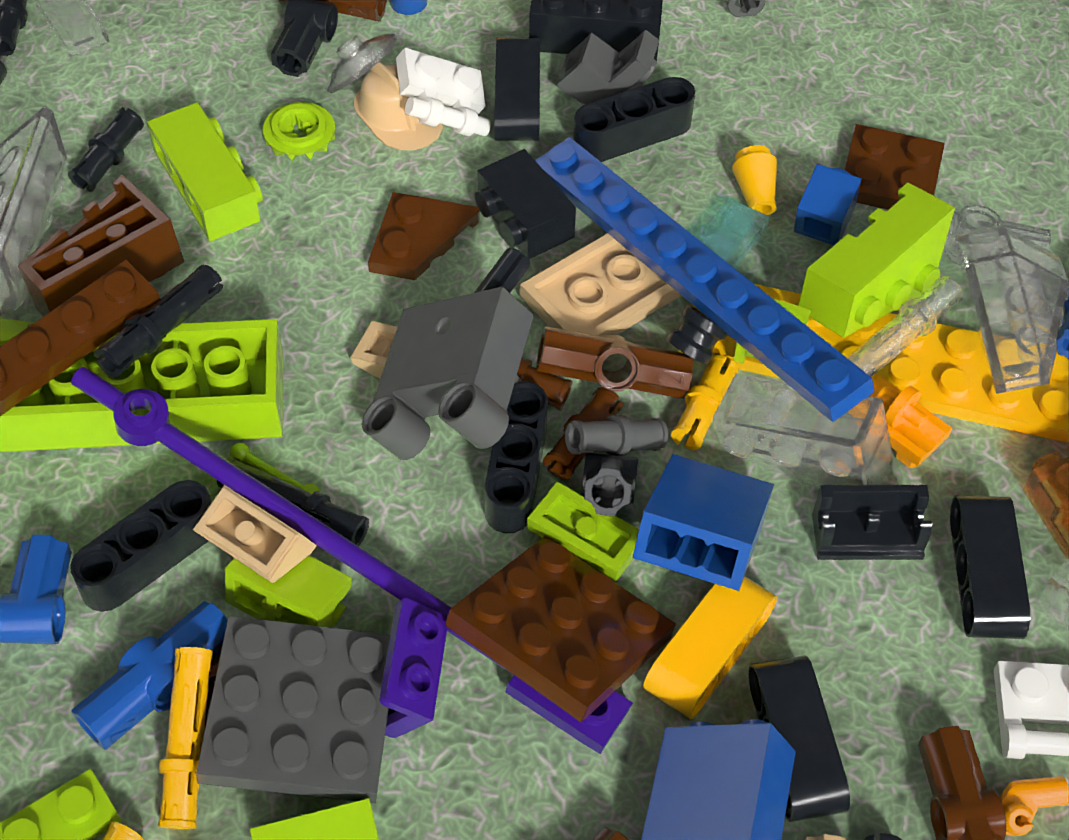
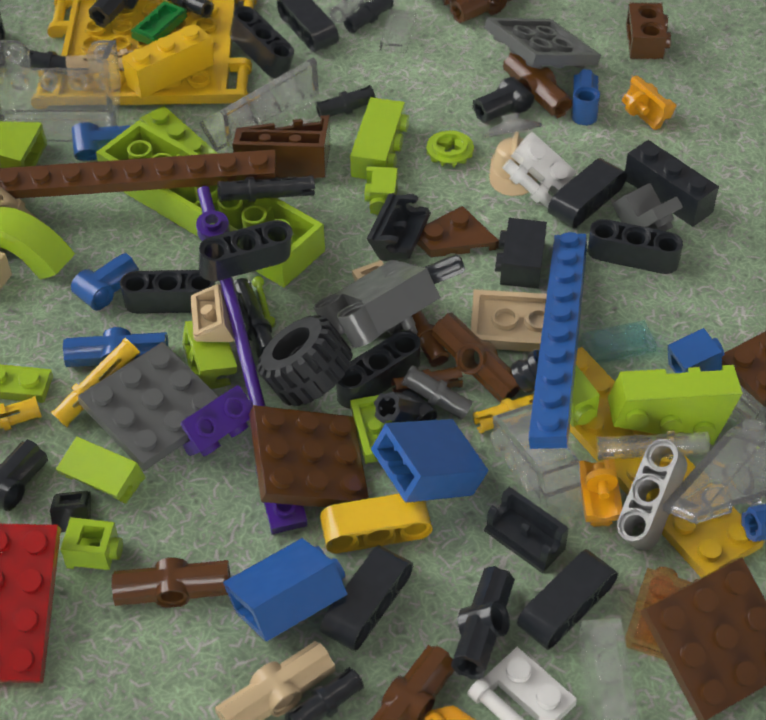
camera: 45 degrees right, 5 degrees down
(227, 438) = (245, 250): none -> black beam
(278, 232) = (379, 184): none -> lime brick
(355, 265) = (398, 227): none -> black hinge
(407, 495) = (305, 360): none -> black tyre
(756, 176) = (672, 320): yellow cone -> none
(949, 662) = (483, 623): none -> black piece
(965, 359) = (650, 477): none -> light grey beam

